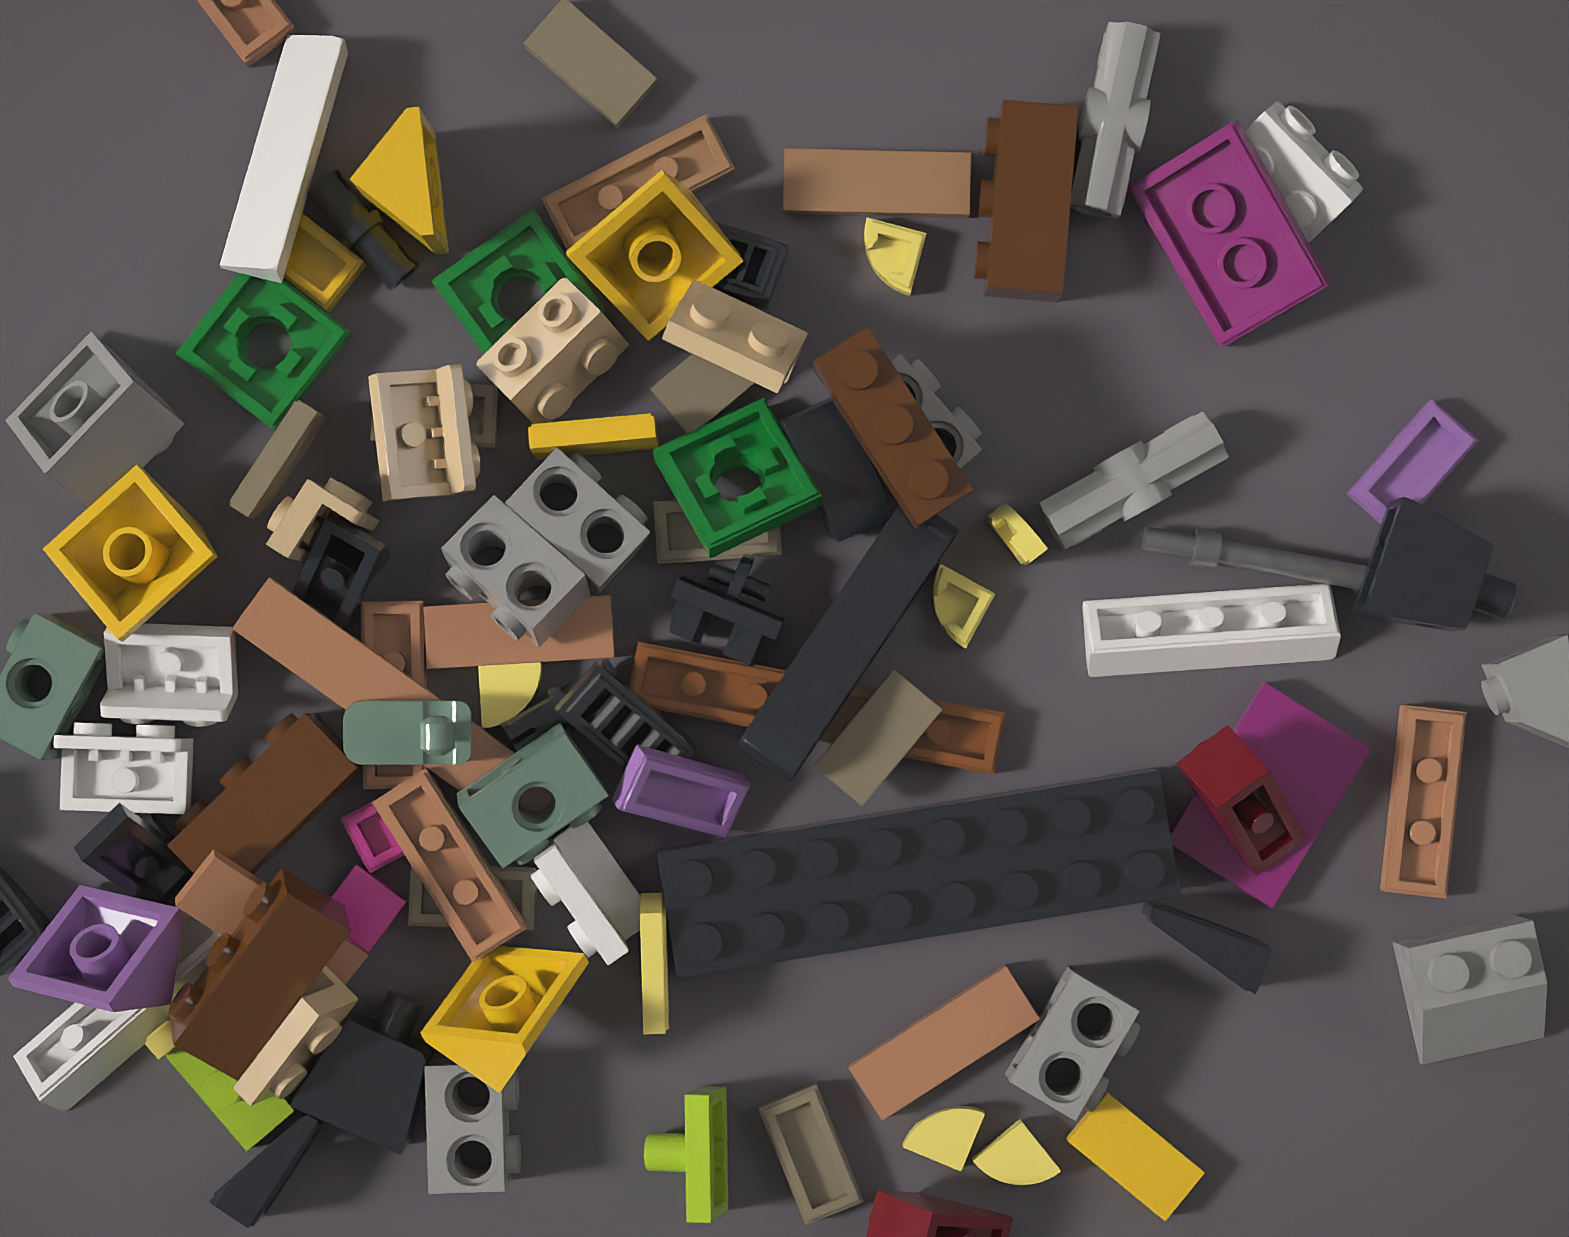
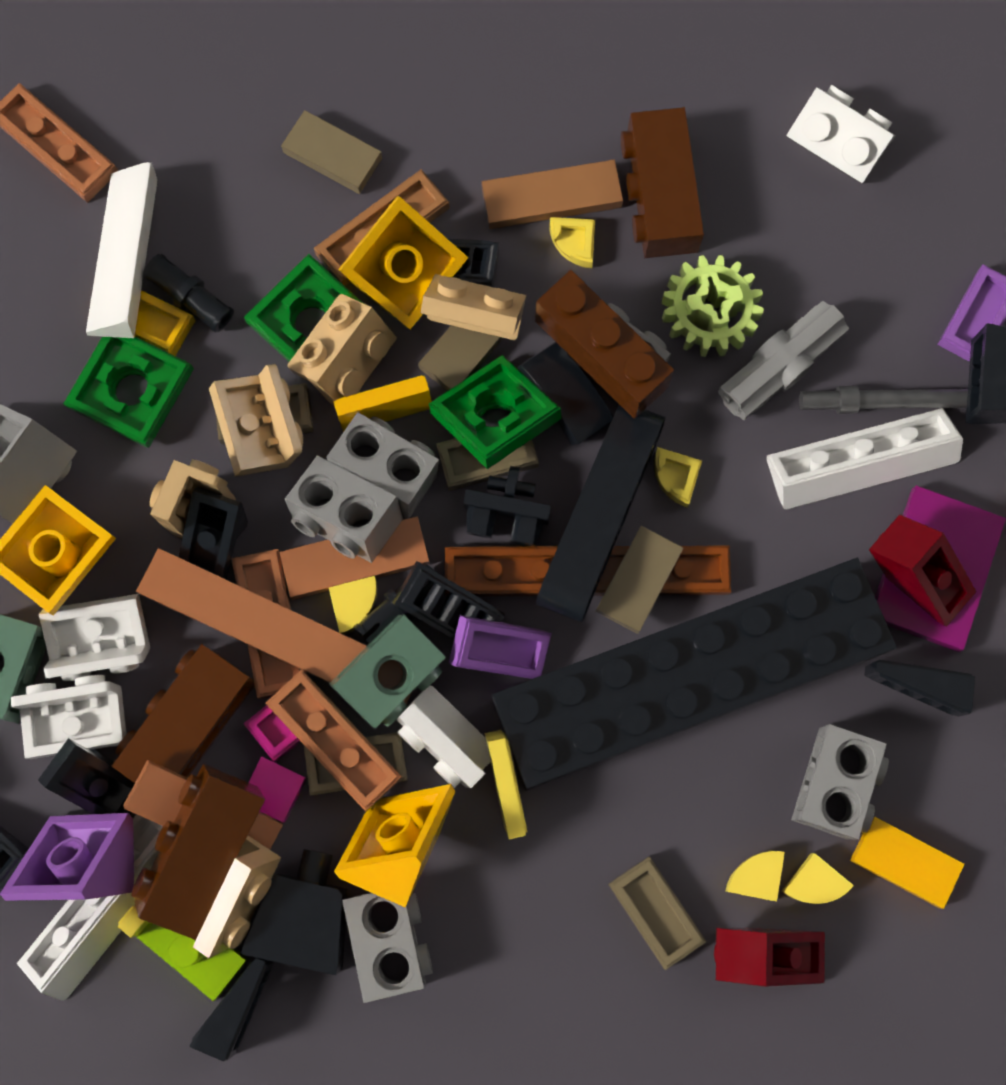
camera: 10 degrees left, 10 degrees down
(277, 460) = (152, 464): dark tan tile -> none
(405, 180) = (209, 247): yellow slope -> none
(408, 732) = (283, 643): sand green piece -> none
(698, 1152) = (568, 929): lime tile -> none
(943, 1042) = (739, 804): nougat tile -> none
(1016, 534) = (709, 415): light yellow tile -> none
(1083, 387) = (724, 290): none -> yellowish green gear
(1113, 119) = (711, 117): light grey piece -> none
(1229, 234) = (812, 177): magenta tile -> none

